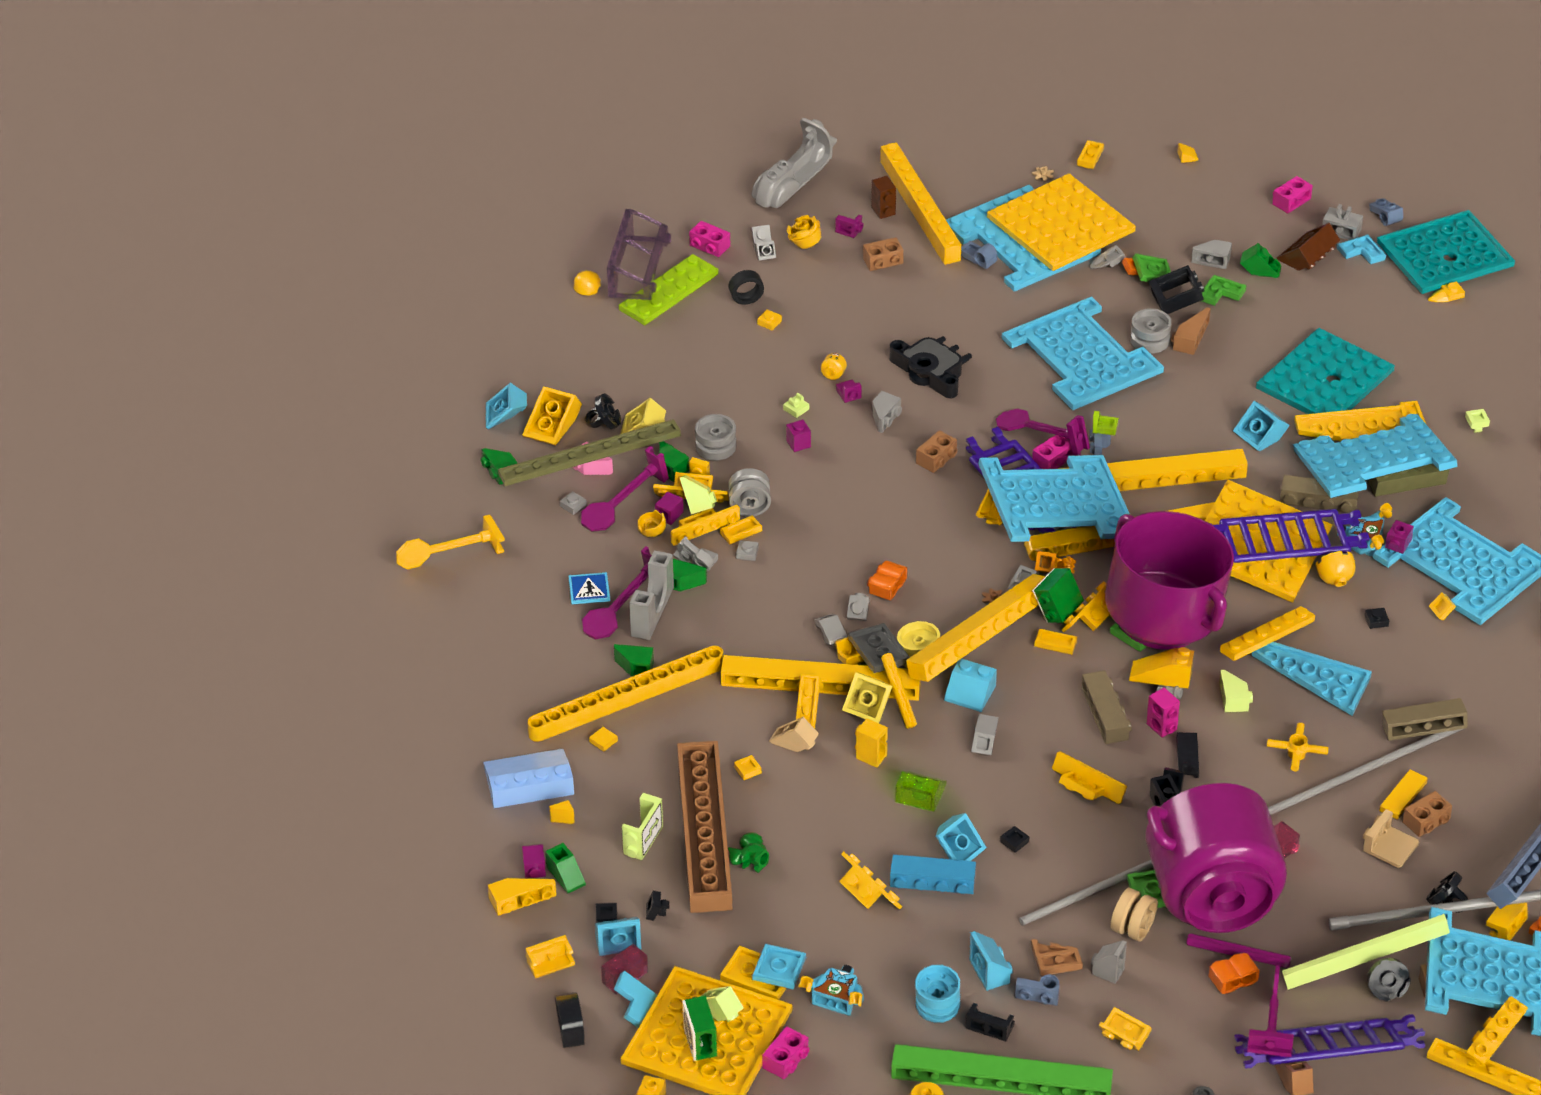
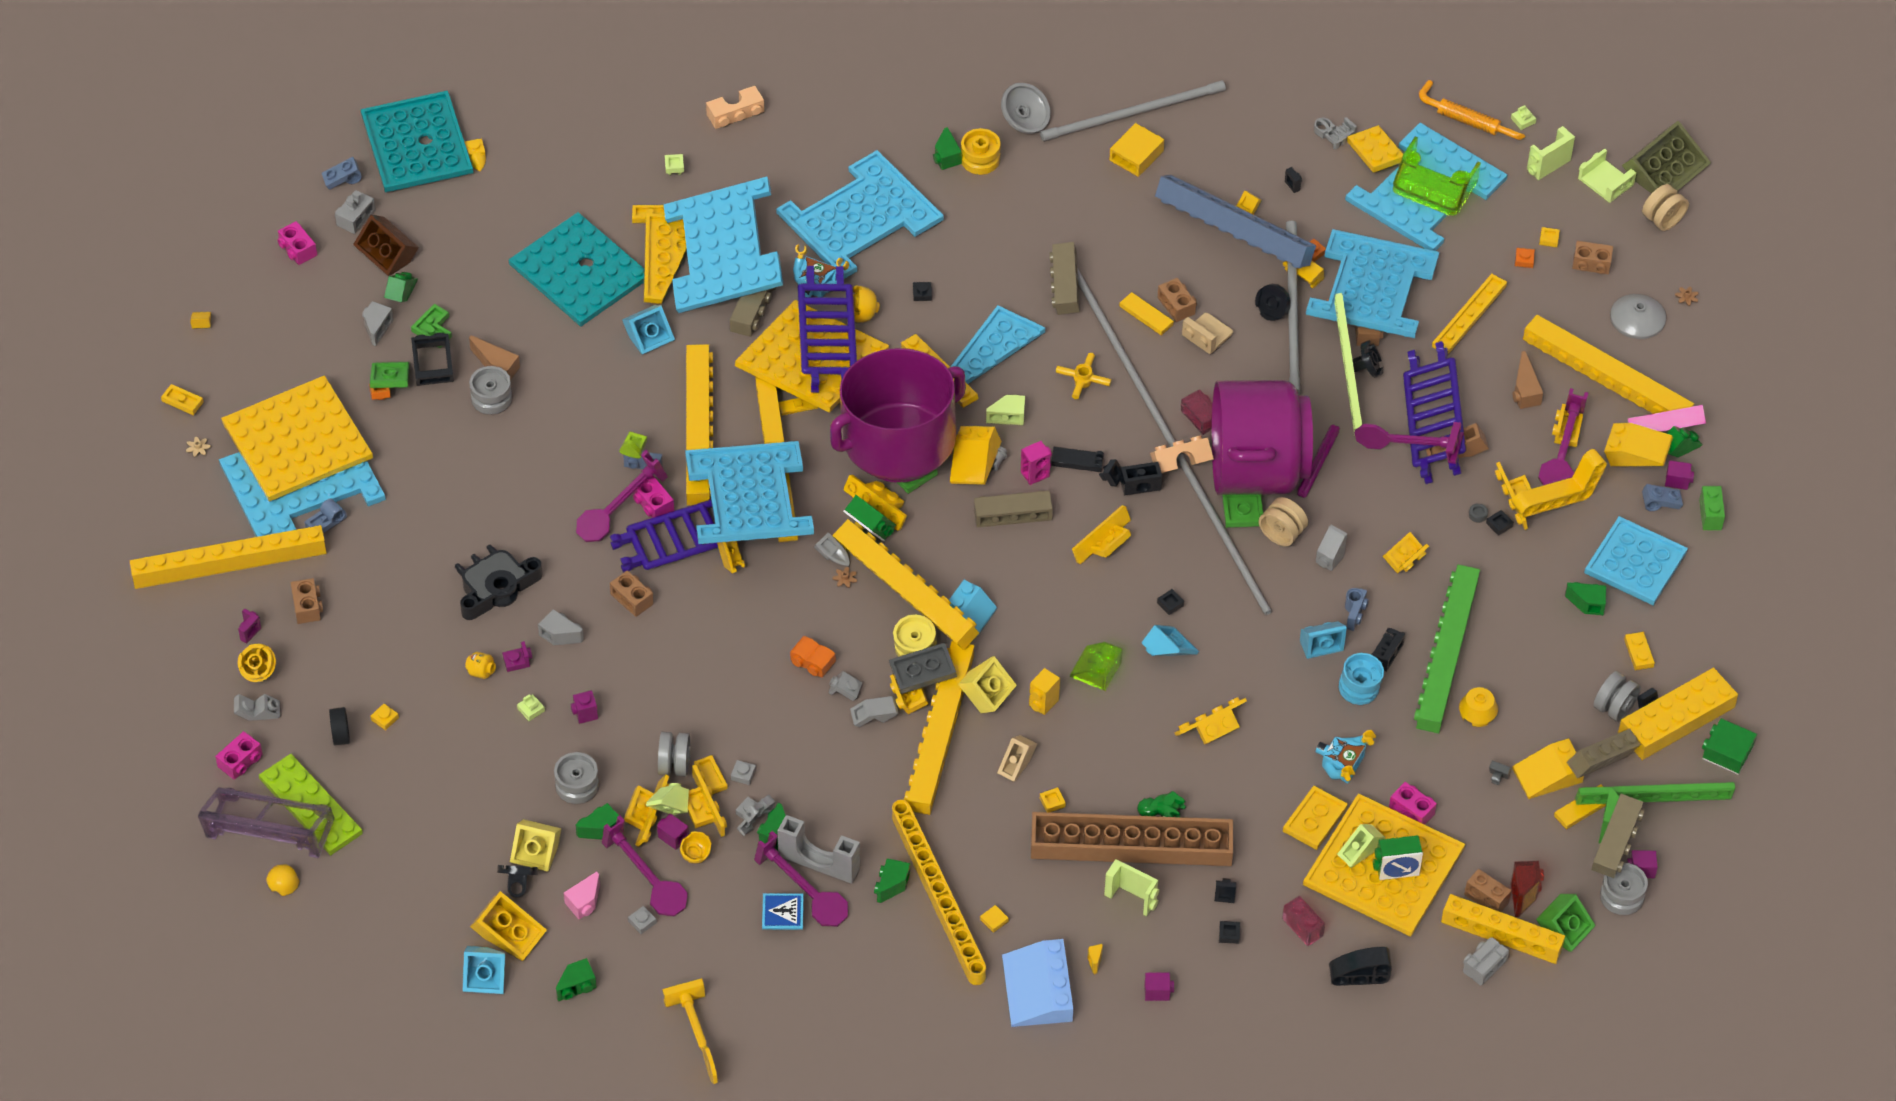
camera: 85 degrees left, 10 degrees up
(518, 893) = (1199, 1010): yellow slope -> none
(549, 956) = (1279, 982): yellow hinge -> none
(564, 868) = (1172, 959): green slope -> none
(589, 452) = (591, 888): olive plate -> none
(617, 935) = (1261, 920): medium azure slope -> none
(638, 994) = (1337, 912): medium azure tile -> none
(699, 466) = (618, 798): yellow plate -> none
(779, 966) = (1318, 795): medium azure plate -> none
(787, 177) = (143, 661): light grey piece -> none
(808, 698) = (977, 740): yellow tile -> none
(883, 197) = (220, 584): reddish brown brick -> none
(899, 690) = (976, 659): yellow axle -> none
(933, 874) = (1209, 668): dark azure brick -> none
(984, 734) = (1031, 602): light grey slope -> none
(1047, 561) = (820, 517): light orange brick -> none
(1055, 641) = (914, 536): yellow tile -> none
(1056, 958) = (1316, 592): medium nougat wing -> none
(1083, 354) = (505, 453): medium azure piece -> none
(1110, 257) = (359, 410): light grey plate -> none
(1234, 973) = (1347, 466): orange brick -> none
(1364, 246) = (389, 203): medium azure tile -> none
(1399, 536) = (833, 248): magenta brick -> none
(1442, 606) = (919, 239): yellow plate -> none
(1496, 1030) = (1434, 302): yellow bracket -> none

